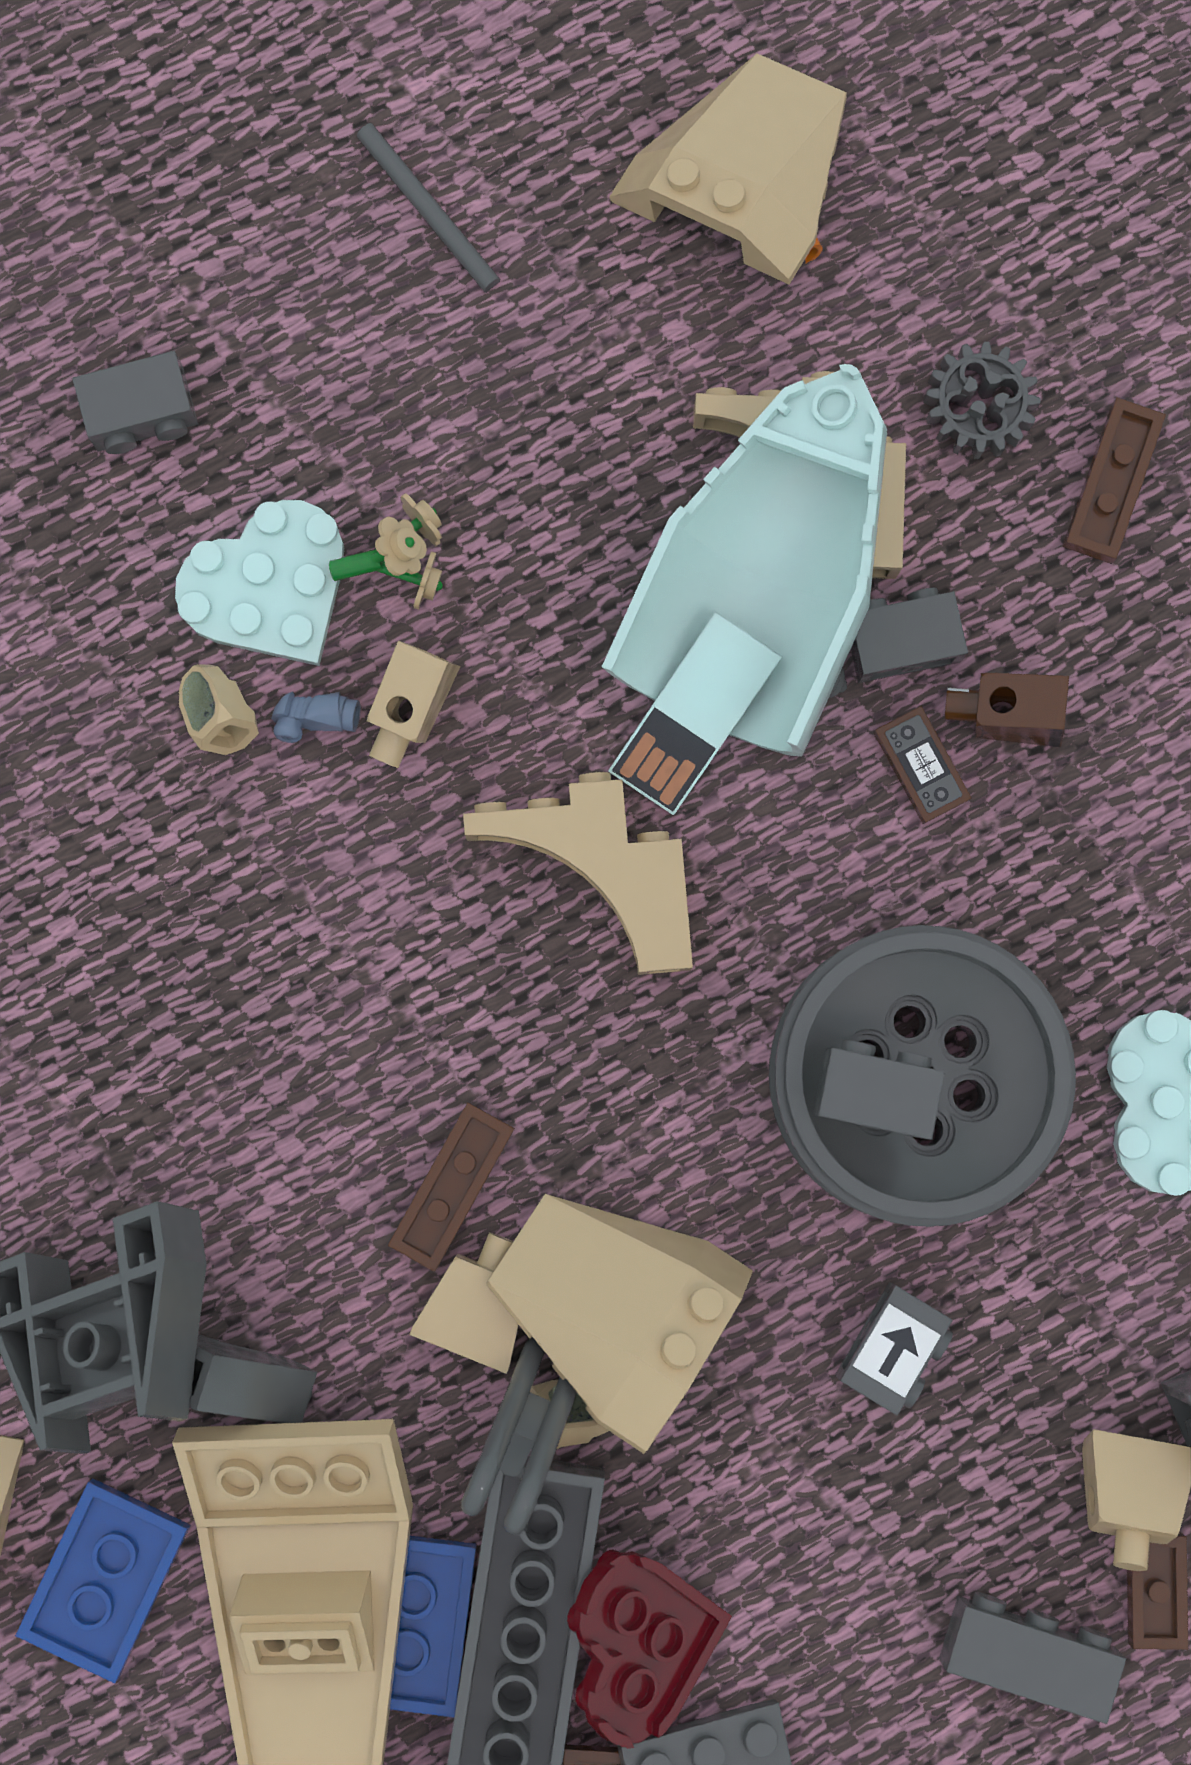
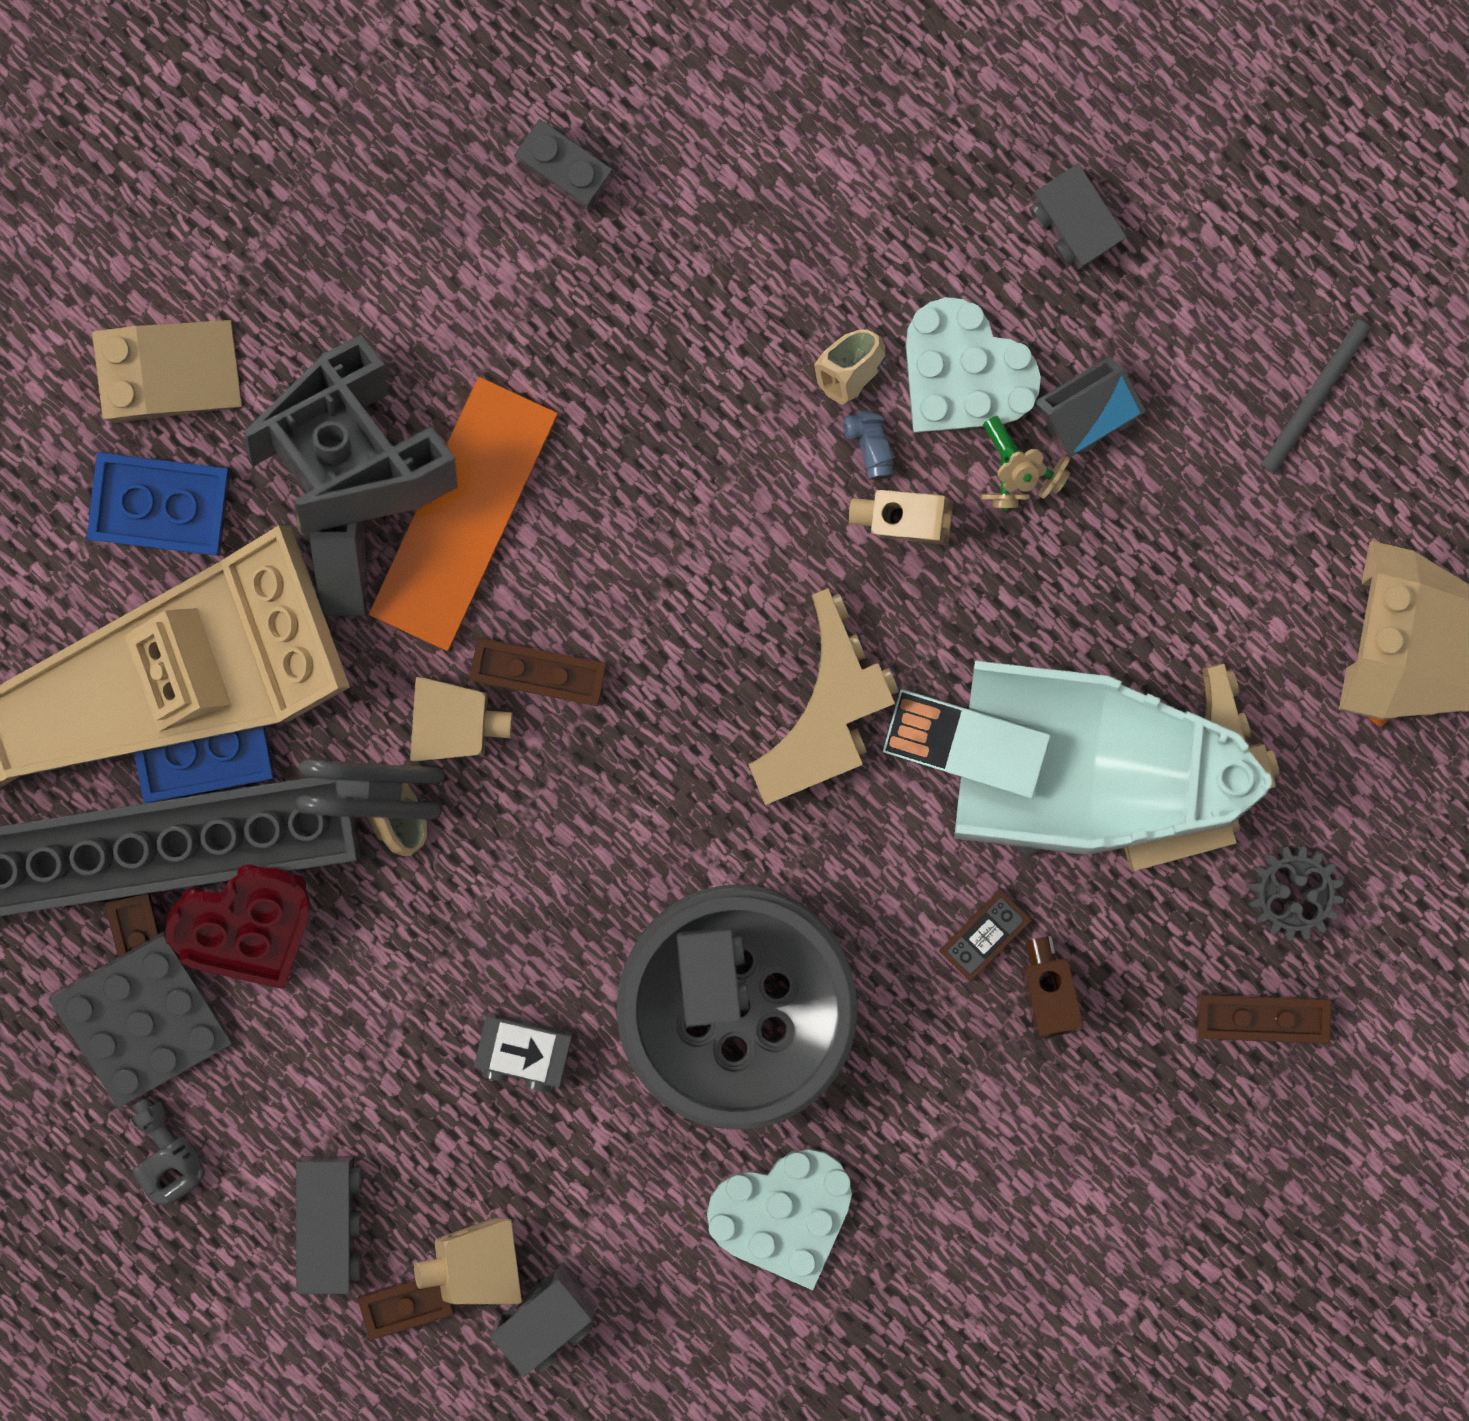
camera: 75 degrees right, 5 degrees up
(251, 1221) = (460, 531): none -> orange tile
(355, 453) = (1090, 407): none -> dark grey brick
(619, 1308) = (487, 830): tan wedge -> none
(909, 636) = (1084, 892): dark grey brick -> none

